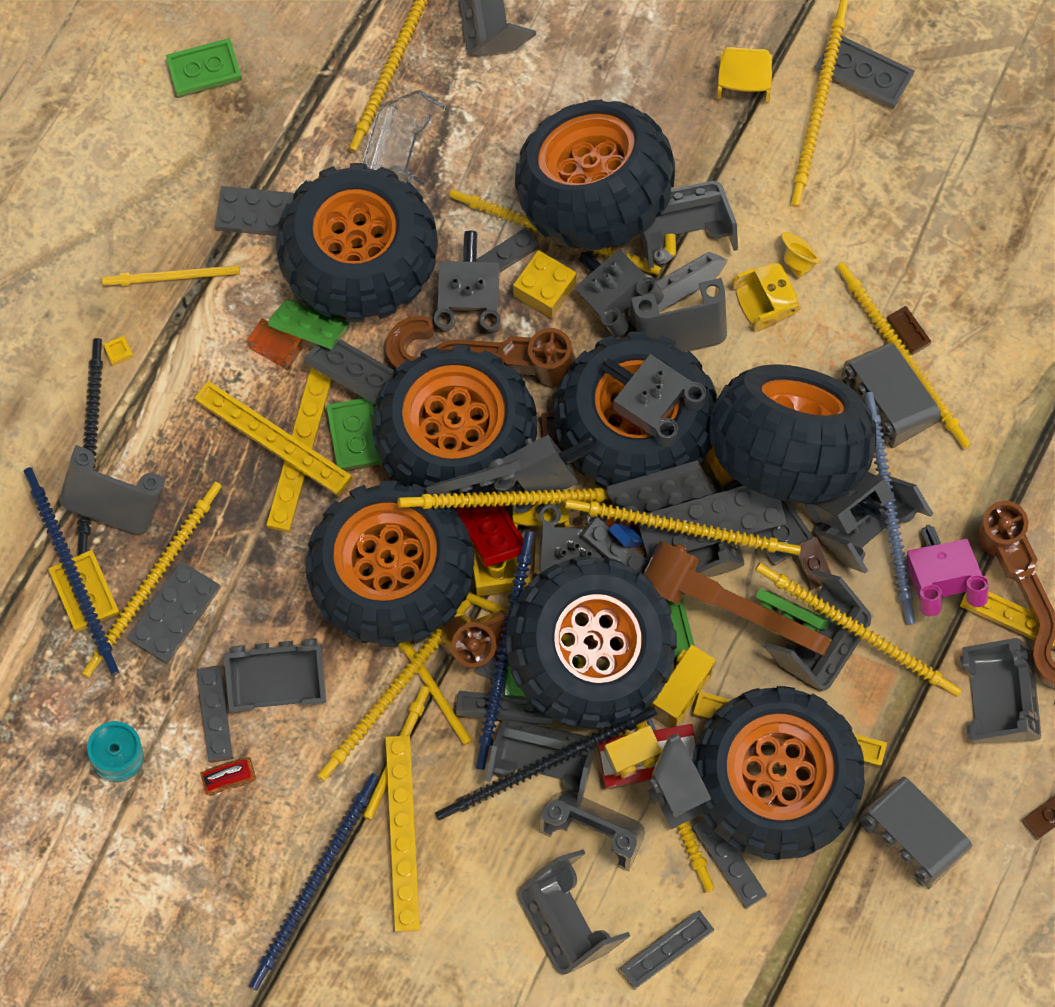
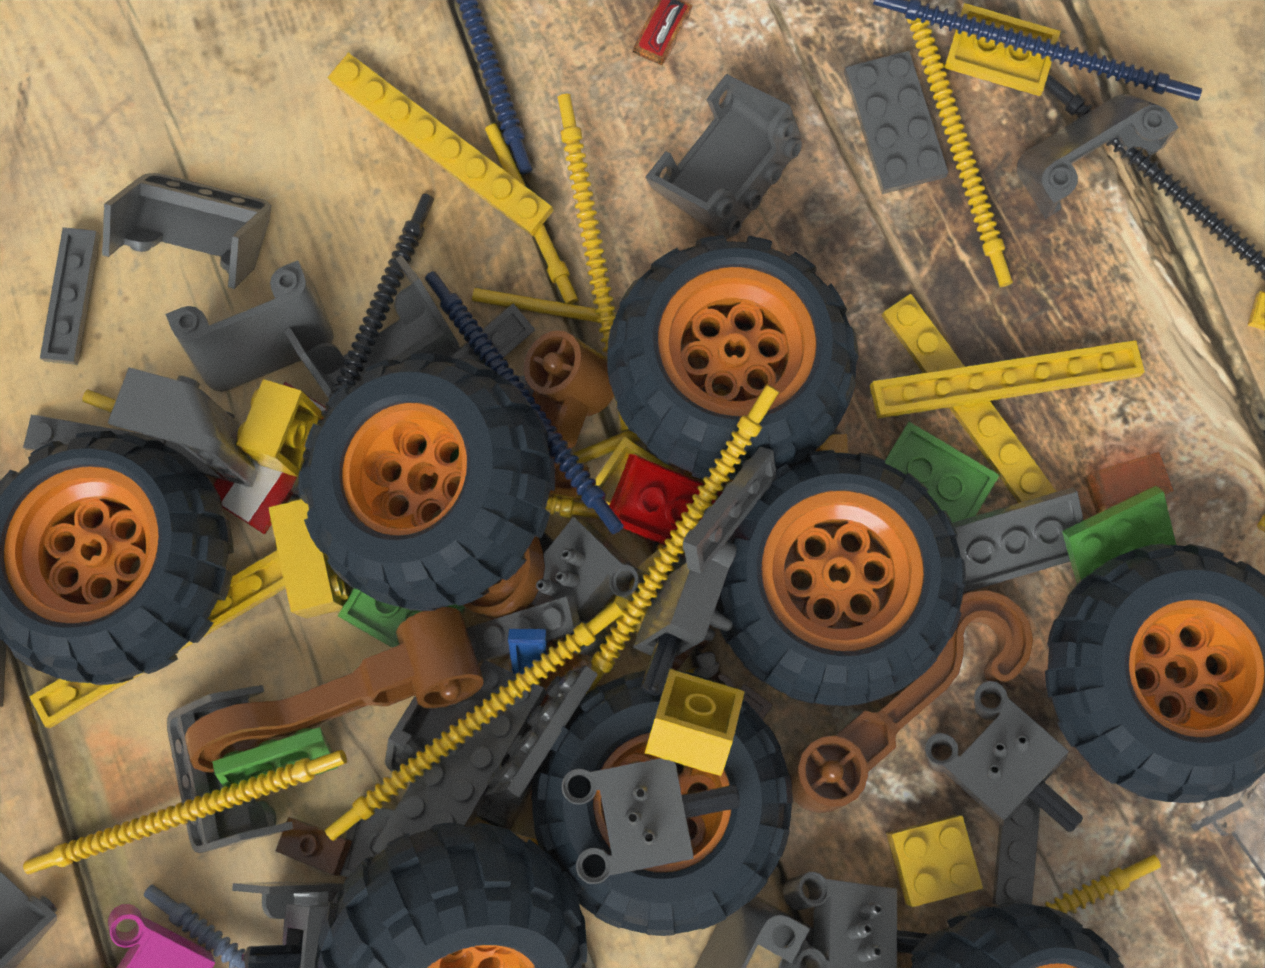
camera: 135 degrees right, 10 degrees up
(215, 714) = (724, 58): dark grey plate -> none
(589, 402) = (695, 722): none -> yellow brick

